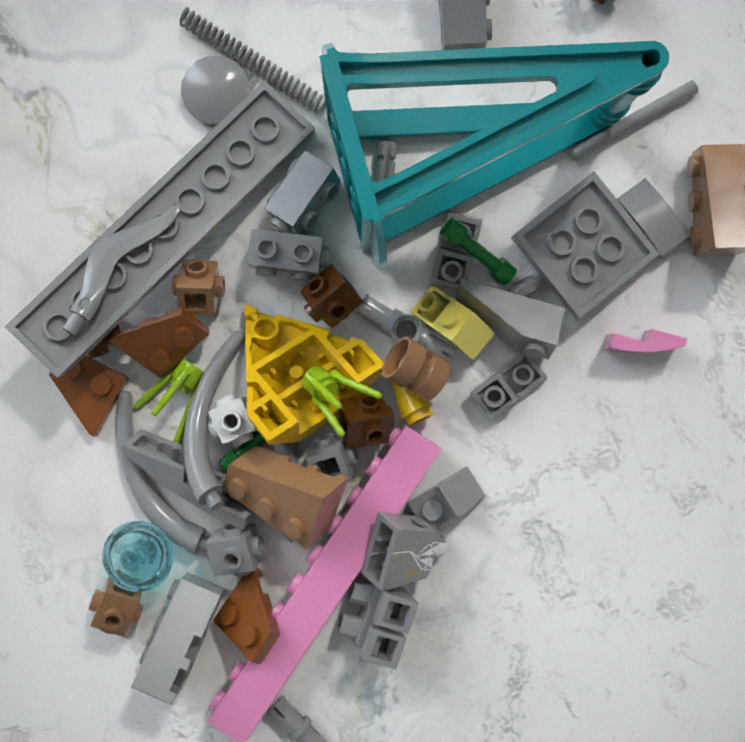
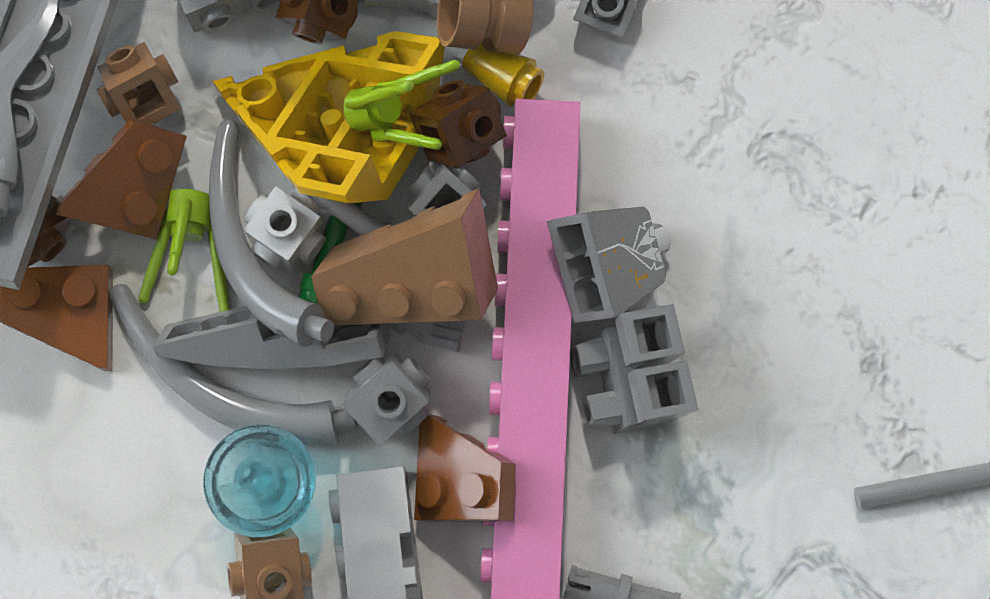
camera: 25 degrees left, 10 degrees down
(448, 498) = (630, 168): light grey slope -> none

